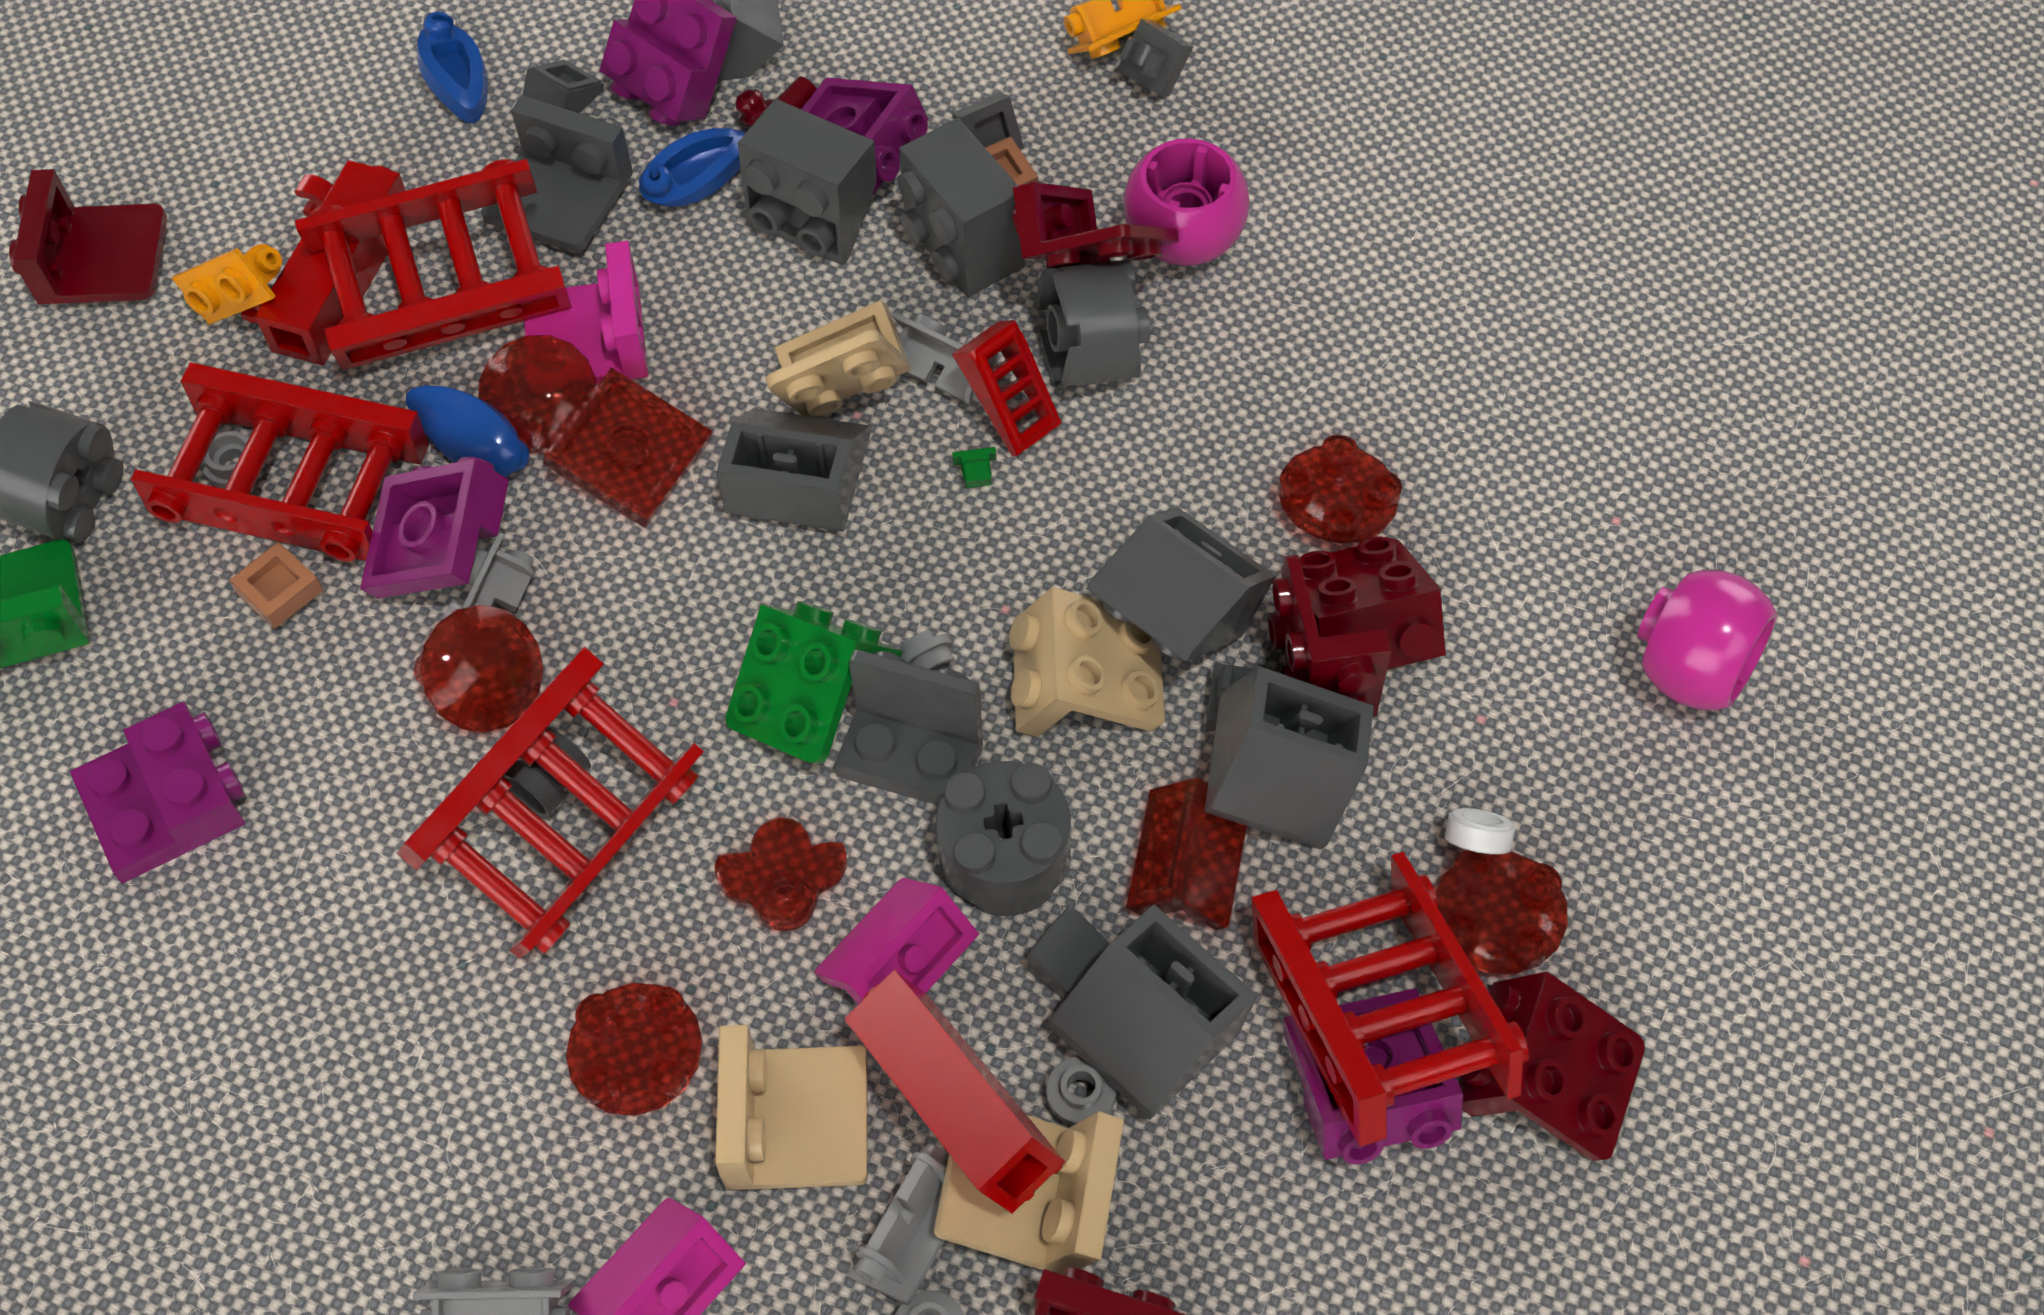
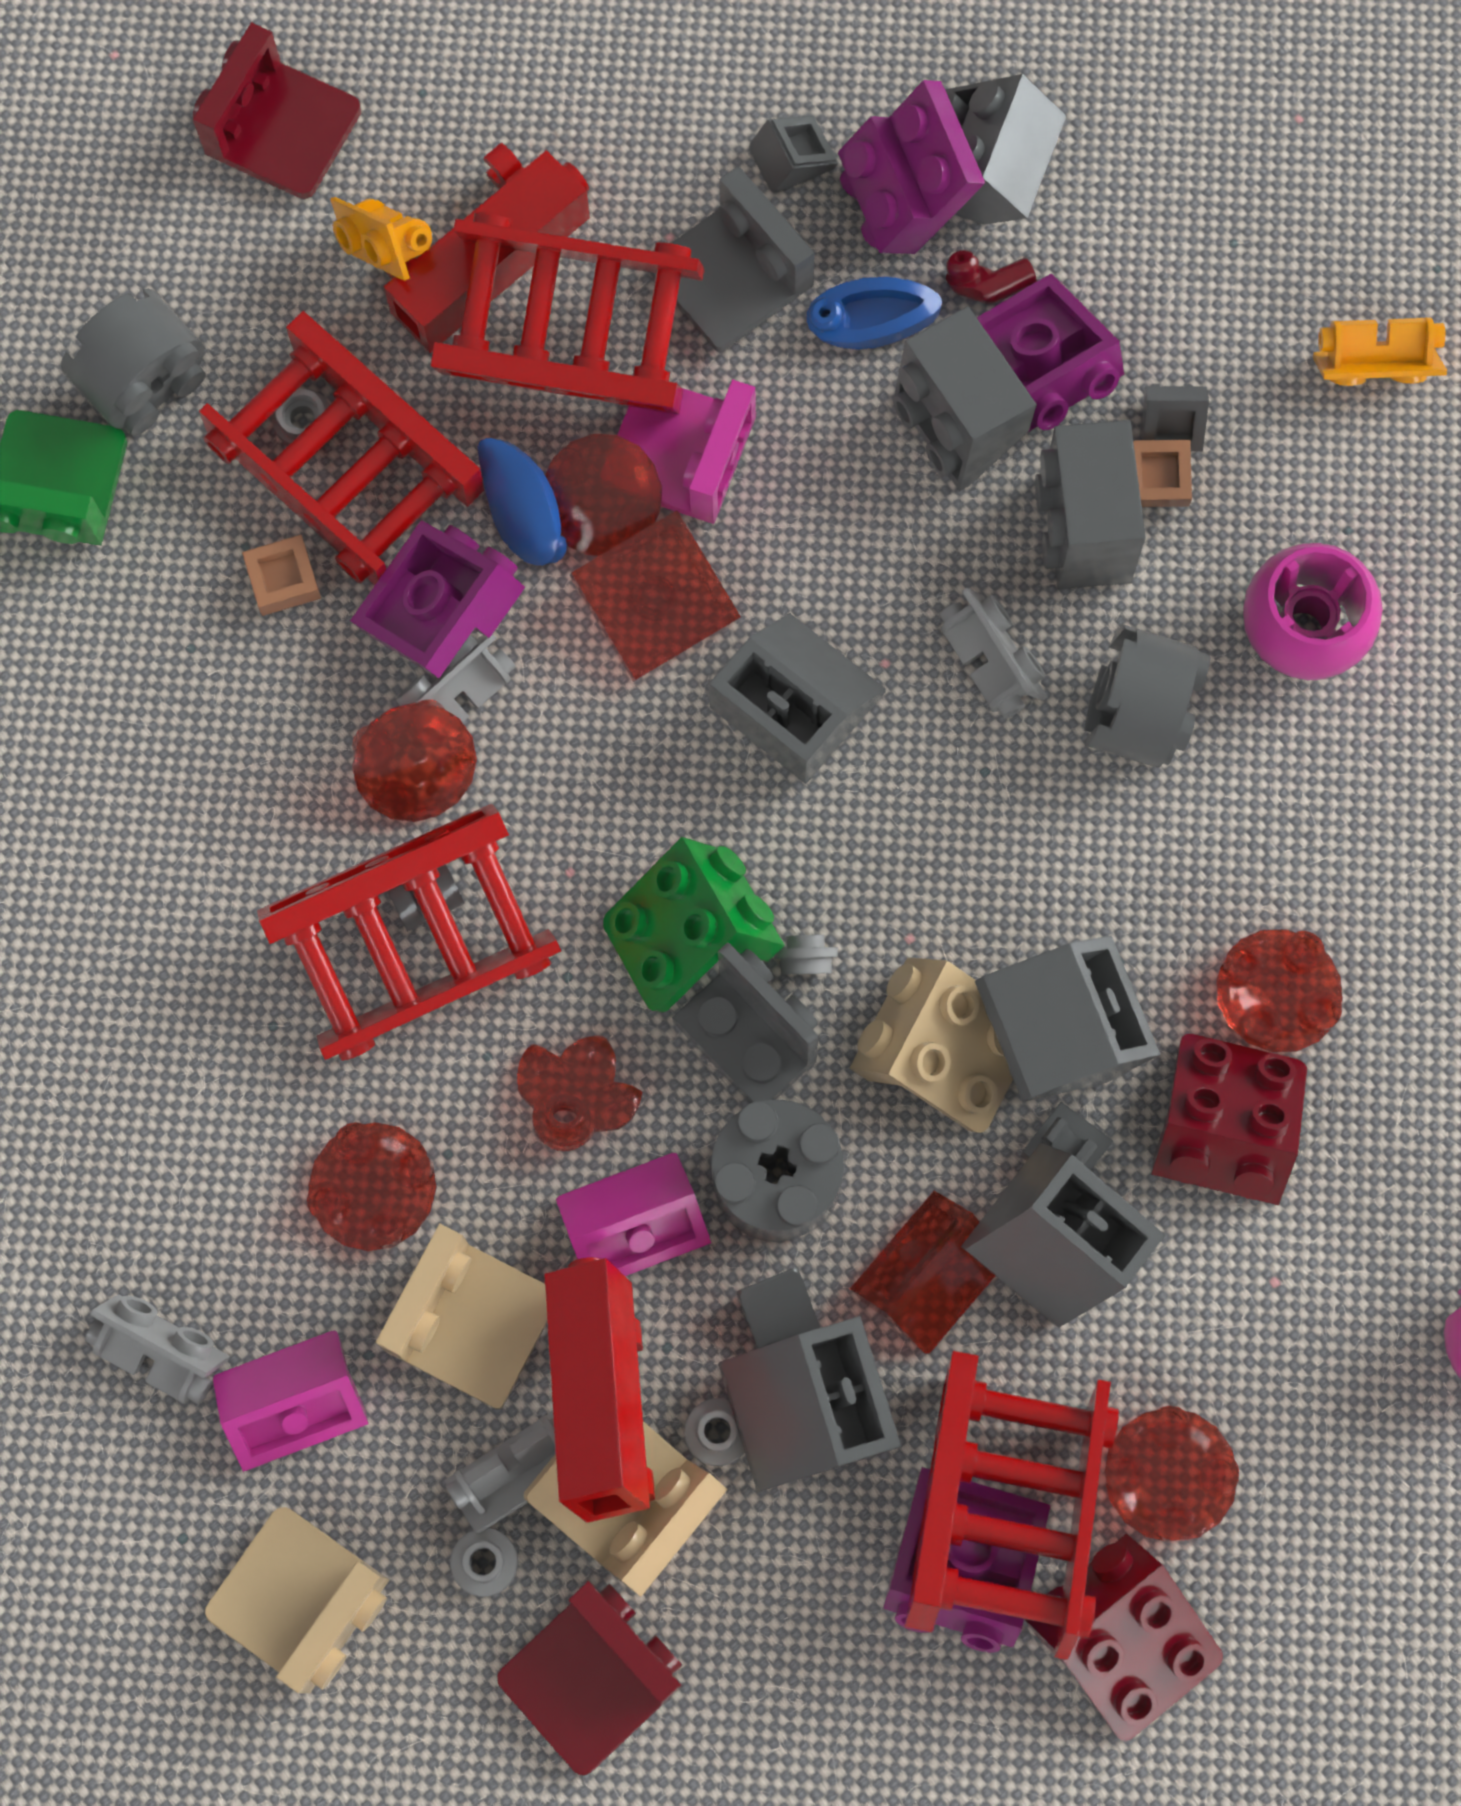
camera: 30 degrees right, 15 degrees up
(159, 792) = (96, 729): magenta plate -> none
(452, 67) = (702, 74): blue arm -> none
(839, 361) = (891, 608): tan bracket -> none
(974, 364) = (1020, 682): red slope -> none
(975, 465) = (962, 779): green piece -> none
(1061, 228) = (1166, 593): dark red bracket -> none
(1154, 57) = (1388, 416): dark grey tile -> none
(1340, 663) = (1151, 1187): dark red bracket -> none
(1480, 831) = (1197, 1394): white tile -> none

